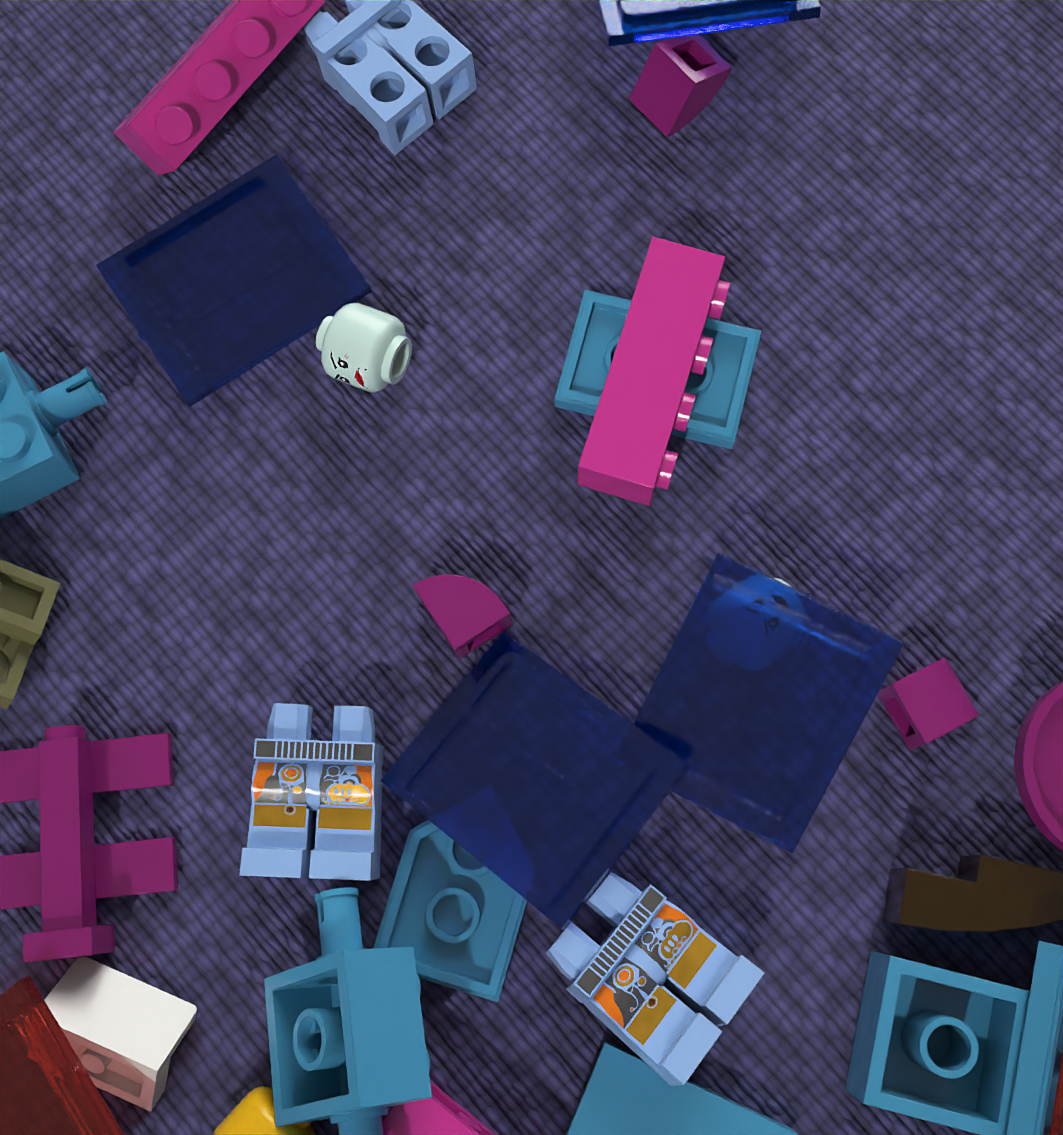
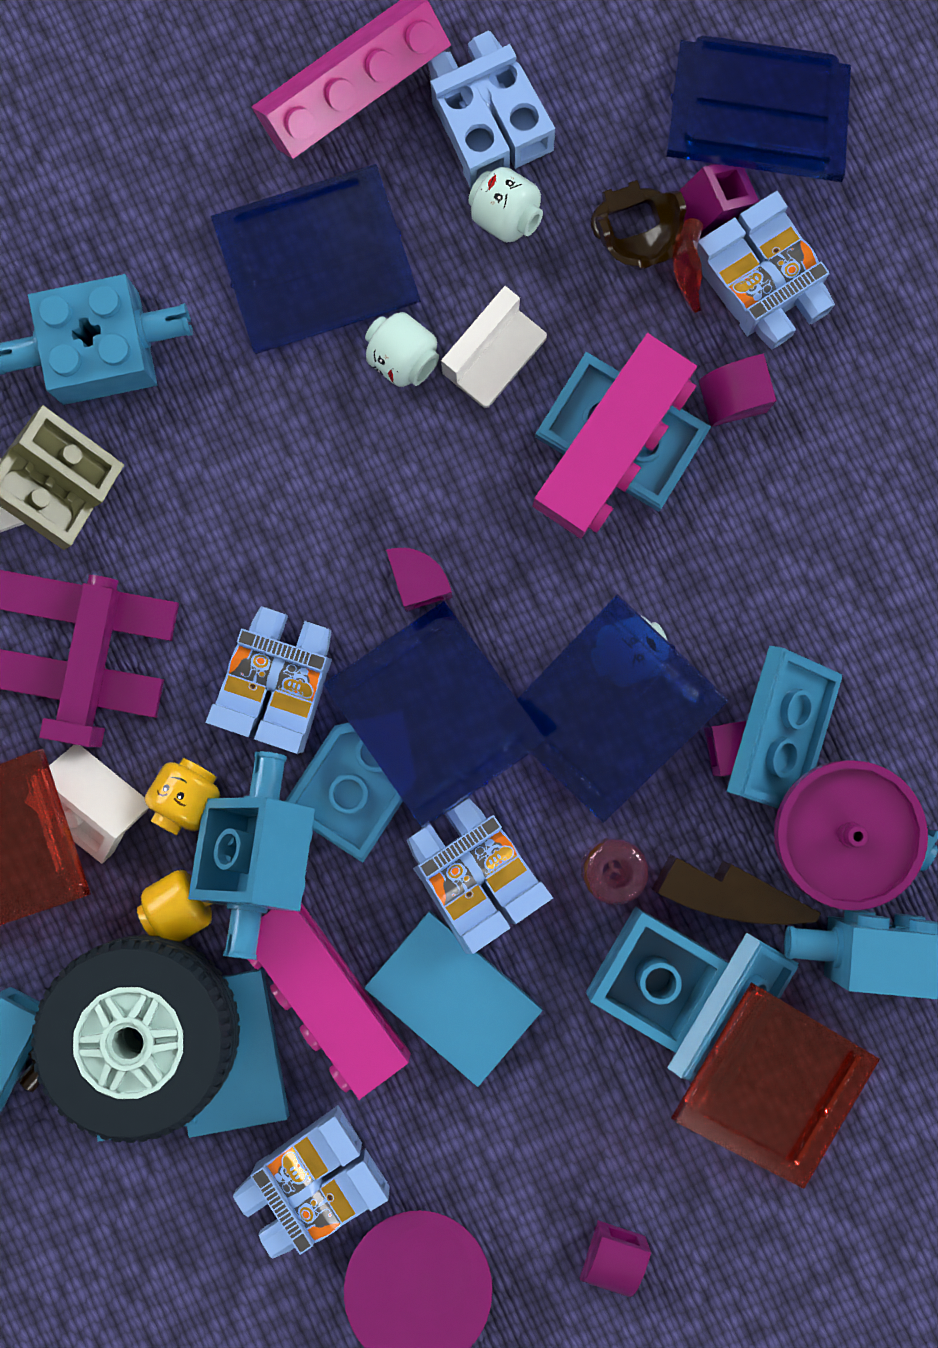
camera: 15 degrees right, 10 degrees up
(232, 984) = (180, 795): none -> yellow head
(439, 154) = (505, 204): none -> light aqua head
(472, 318) = (493, 349): none -> white panel
(629, 111) = (647, 247): none -> dark brown helmet
(674, 155) = (687, 262): none -> clear red bar
(763, 142) = (765, 270): none -> light blue hips
(779, 280) = (737, 390): none -> magenta brick
(854, 911) = (630, 878): none -> clear pink head
(981, 659) = (783, 726): none -> dark azure tile

